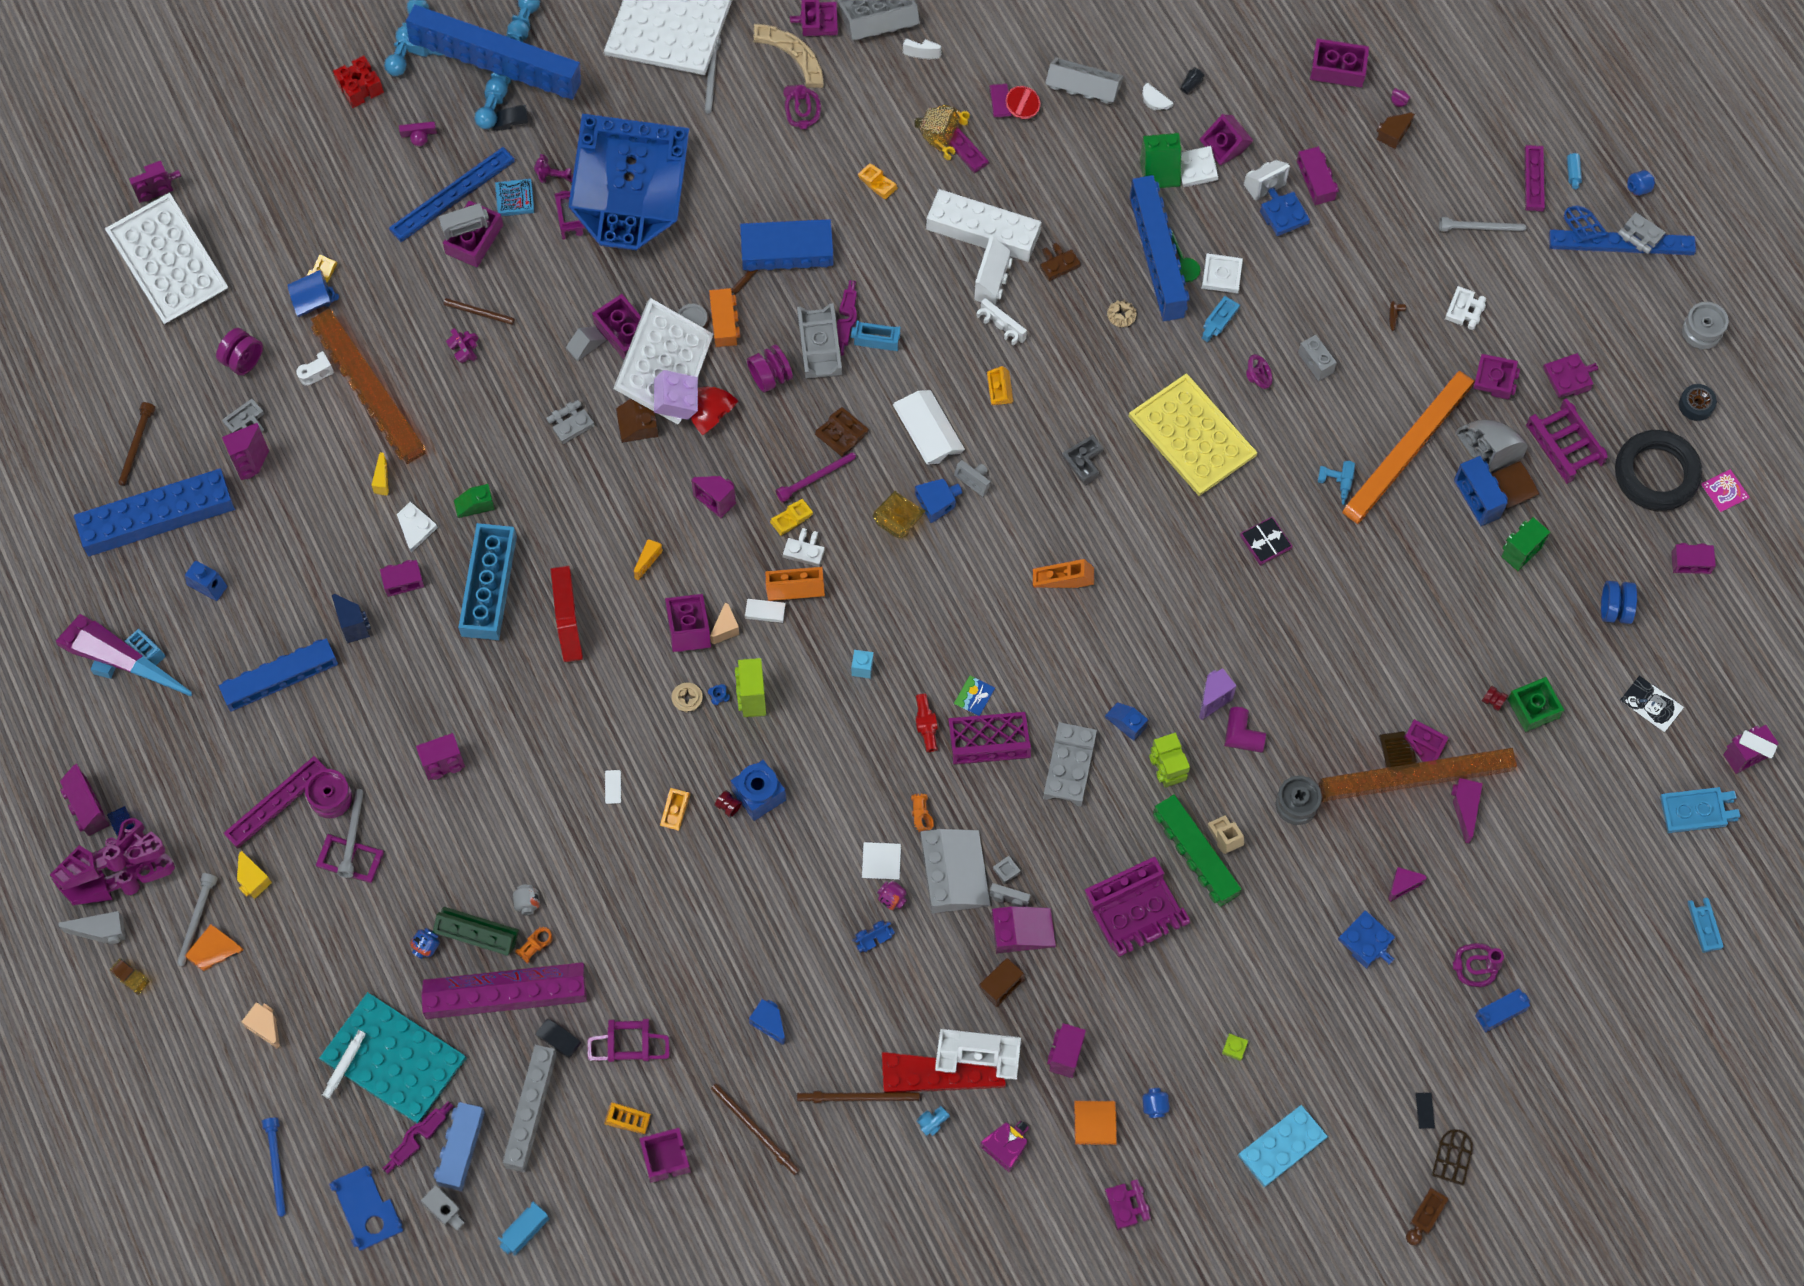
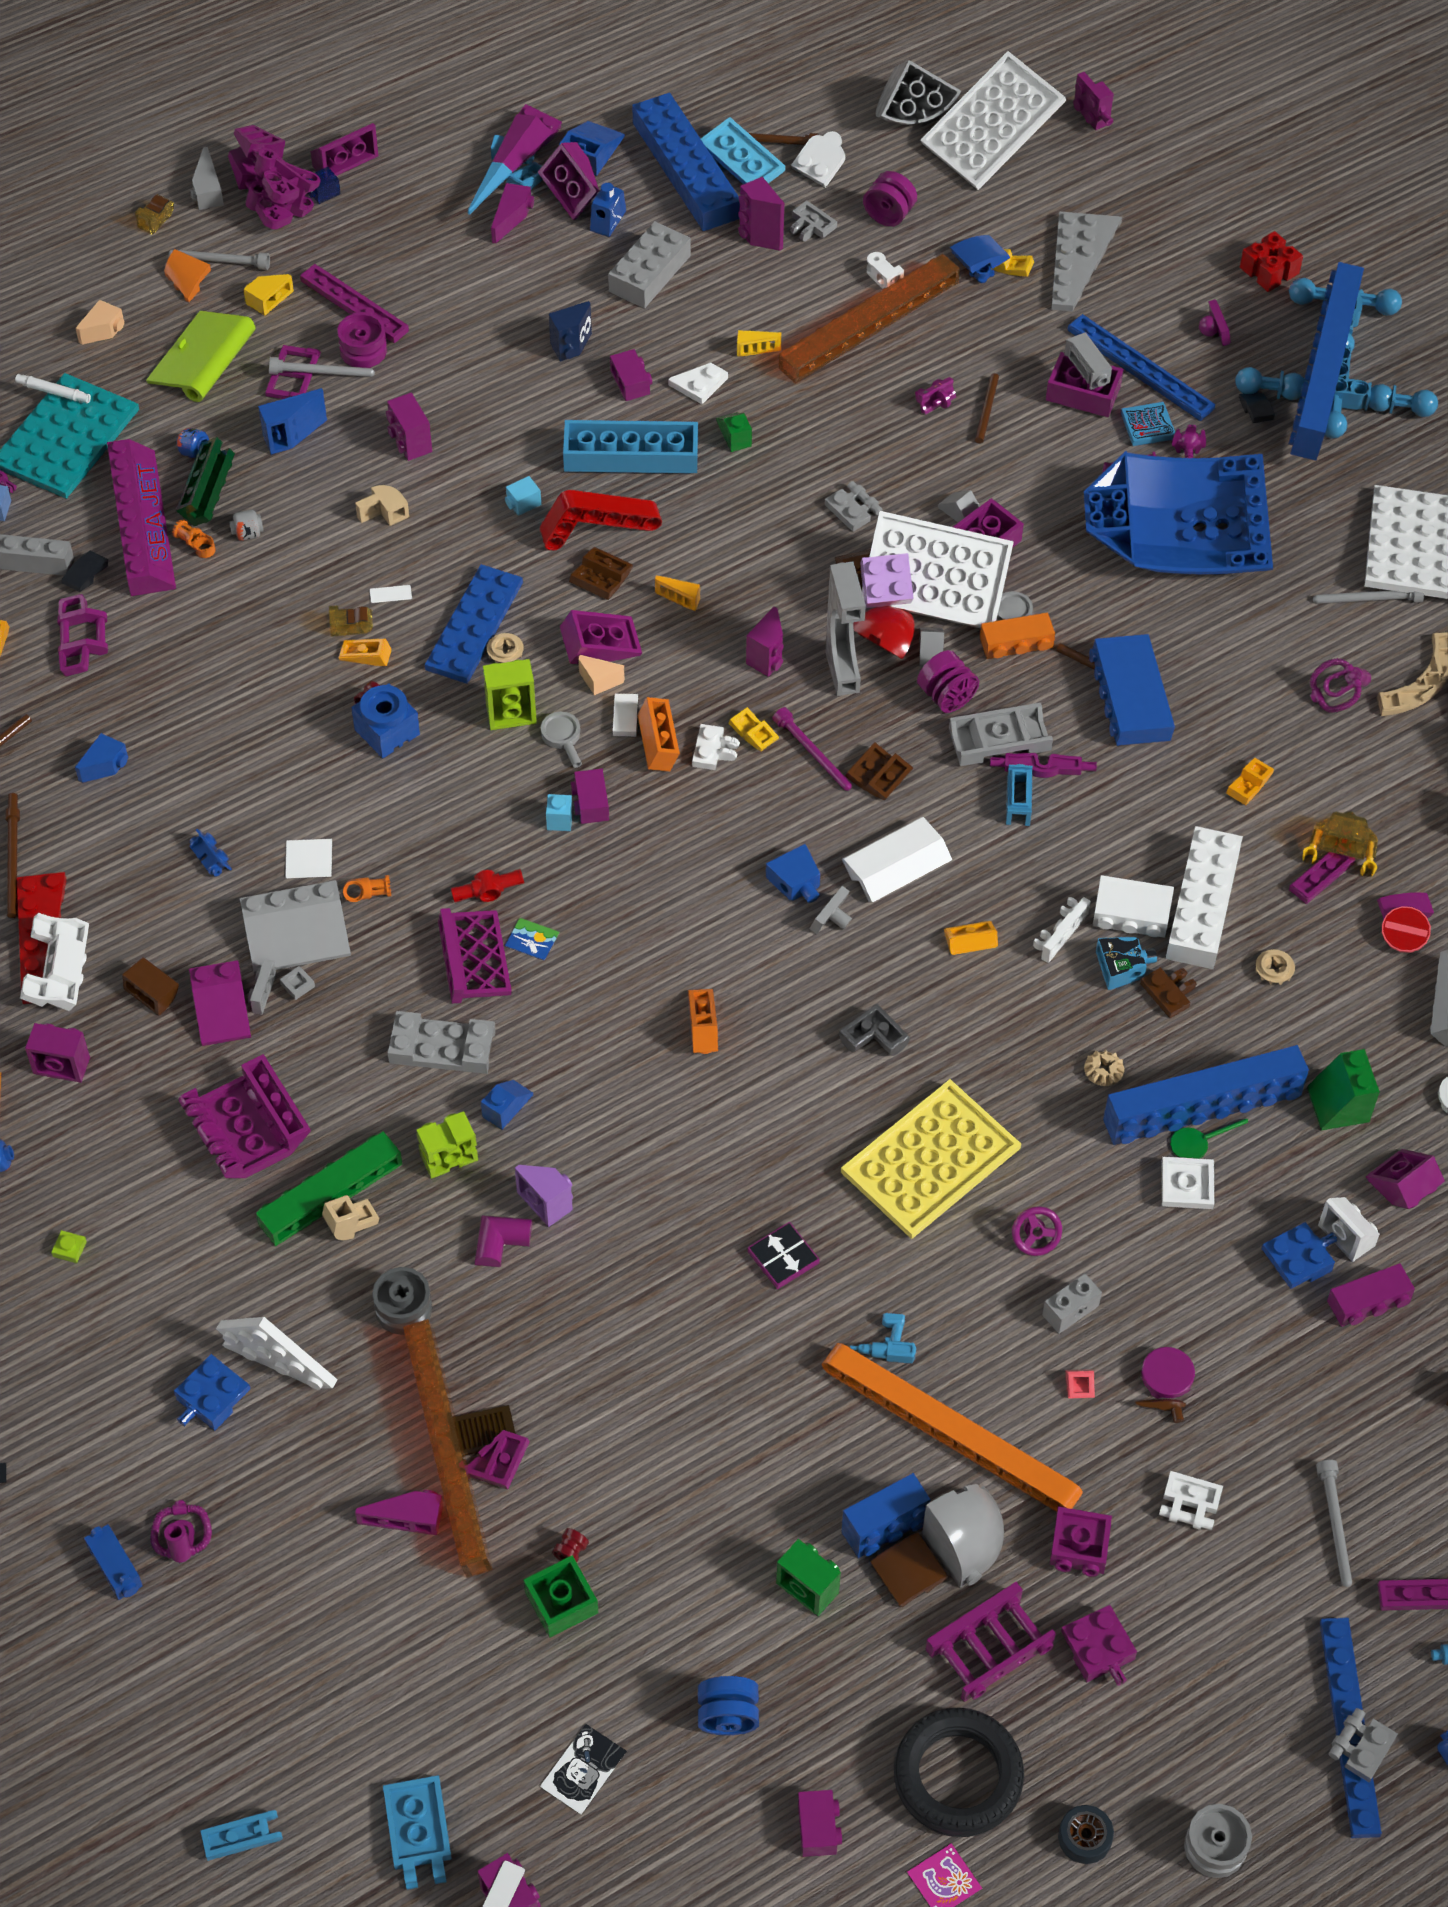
camera: 85 degrees right, 10 degrees down
(118, 589) = (596, 142): none -> blue slope
(120, 322) = (914, 96): none -> light grey brick
(156, 465) = (741, 153): none -> medium azure plate
(166, 605) = (570, 178): none -> magenta slope
(172, 403) = (820, 158): none -> white plate
(180, 659) = (511, 210): none -> magenta slope
(276, 552) = (649, 264): none -> light grey brick
(278, 674) = (503, 286): blue brick -> none
(310, 219) = (1079, 249): none -> light grey wing
(314, 936) = (203, 353): none -> lime door
(419, 858) = (292, 419): none -> blue slope
(517, 782) = (383, 501): none -> tan brick
(526, 672) = (523, 496): none -> medium azure brick
(615, 618) = (601, 573): none -> reddish brown slope
(643, 818) = (350, 621): none -> clear yellow leg
(655, 720) = (473, 624): none -> blue plate
(722, 378) = (930, 643): none -> light grey slope
(724, 408) = (844, 608): none -> light grey arch
(777, 659) = (562, 731): none -> light grey piece
(846, 639) = (591, 796): none -> magenta brick
(892, 895) = (258, 865): magenta head -> none
(897, 515) = (767, 833): clear yellow slope -> none
(1034, 287) = (1123, 960): none -> torso
(1051, 188) = (1279, 959): none -> tan gear
(1198, 166) = (1354, 1145): white plate -> none
(1219, 318) = (1116, 1182): dark azure hinge -> none
(1344, 890) = (267, 1345): none -> white wing
(1370, 307) = (1167, 1372): none -> magenta tile
(1373, 363) = (1080, 1383): none -> coral slope
(1404, 882) = (292, 1433): magenta slope -> none
(1582, 216) = (1375, 1654): blue window -> none

